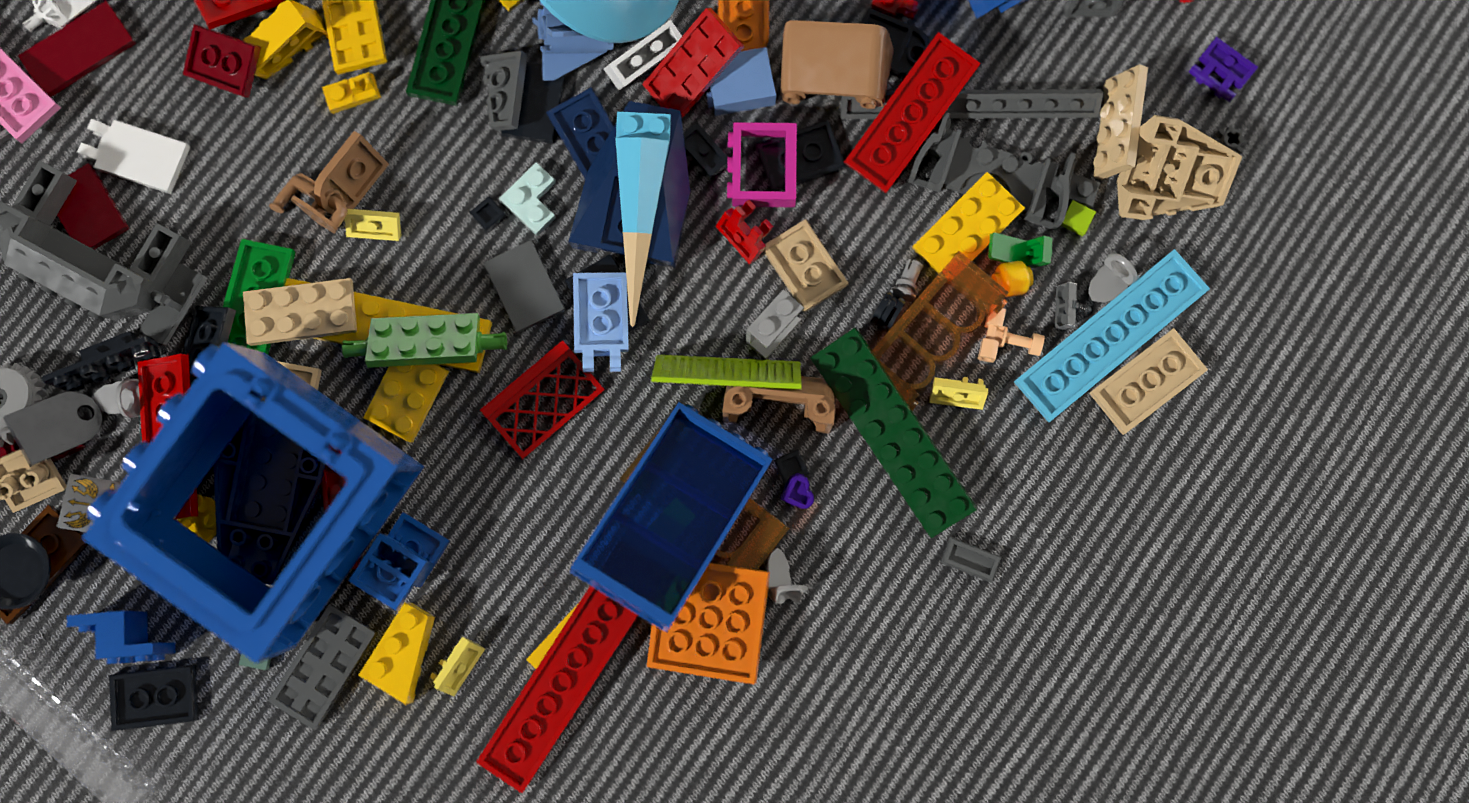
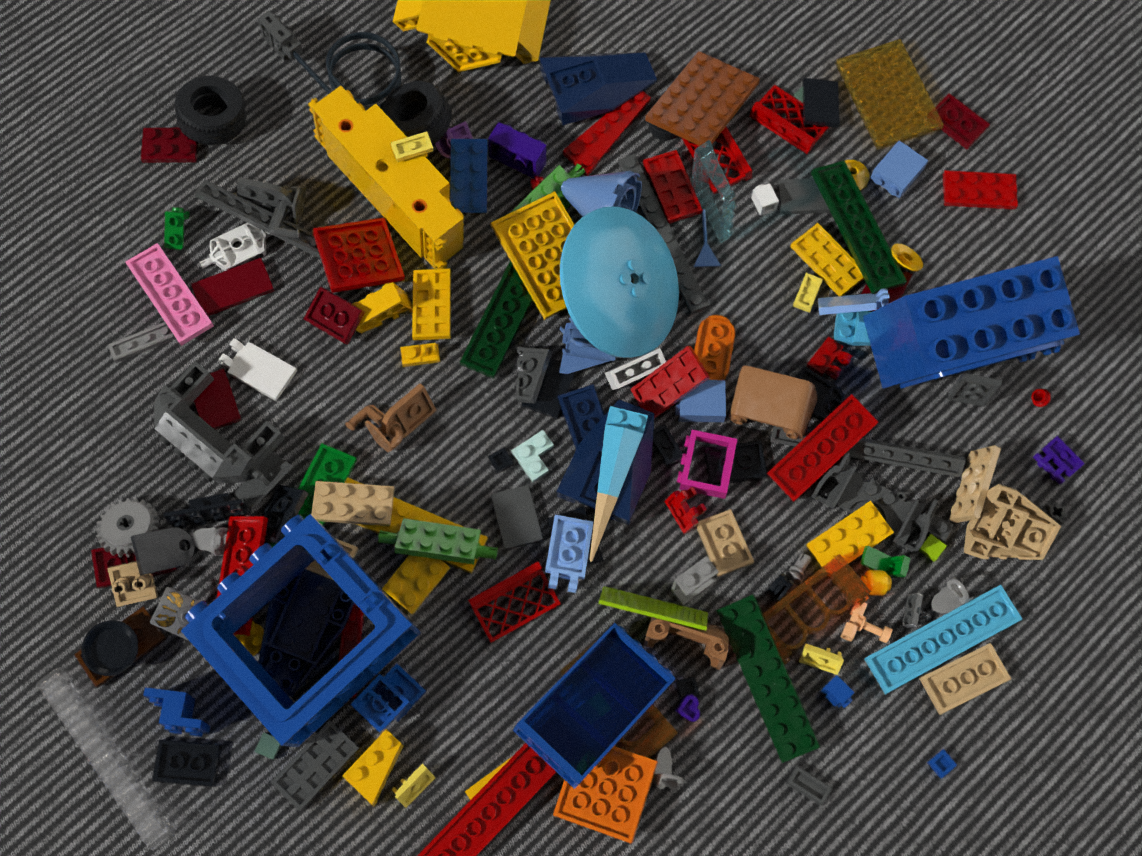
camera: 10 degrees right, 10 degrees down
(373, 225) = (417, 451): light yellow plate -> none
(987, 432) = (838, 692): none -> blue window
(1136, 496) = (942, 763): none -> blue tile

